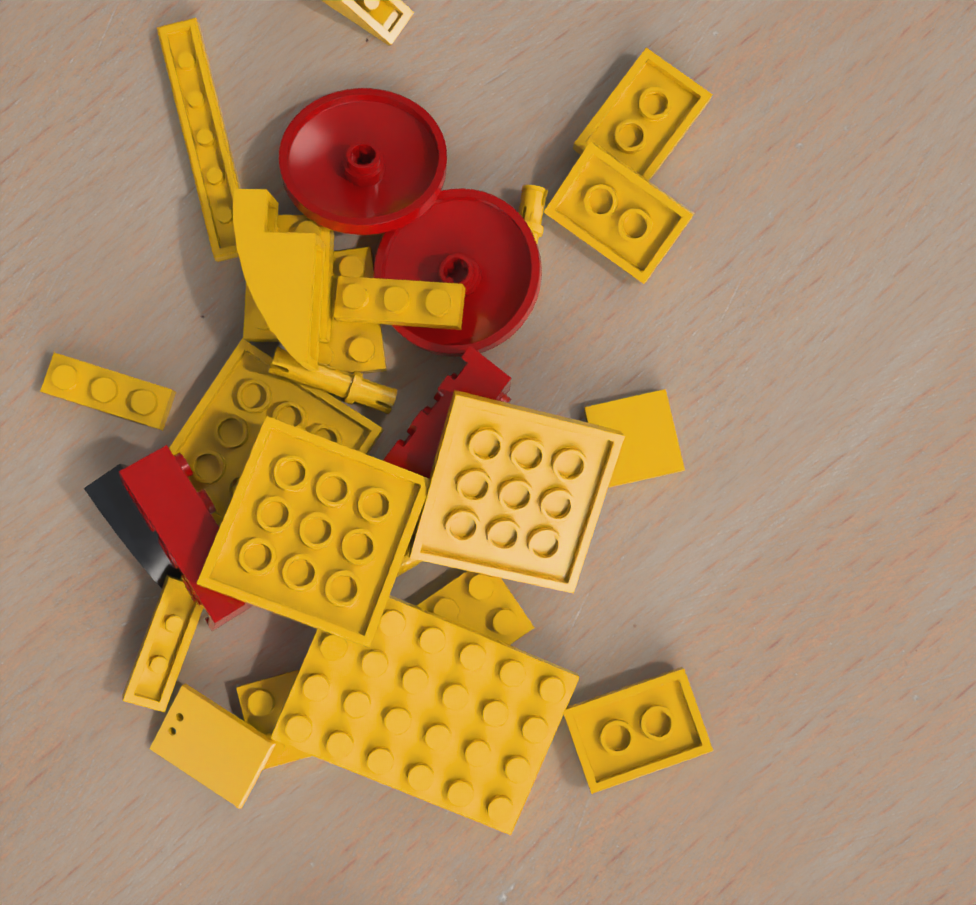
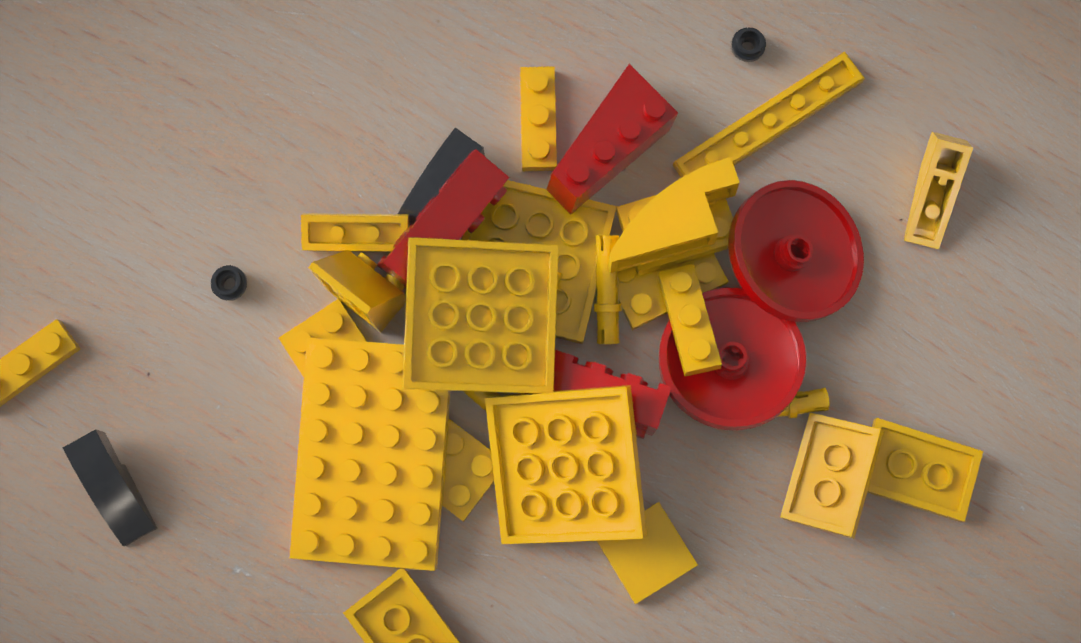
camera: 75 degrees right, 5 degrees down
(101, 120) = (748, 35): none -> black plate
(161, 311) = (615, 136): none -> red wedge
(161, 815) = (219, 278): none -> black plate
(212, 745) = (285, 298): yellow container -> none
(232, 657) = (360, 287): none -> yellow slope

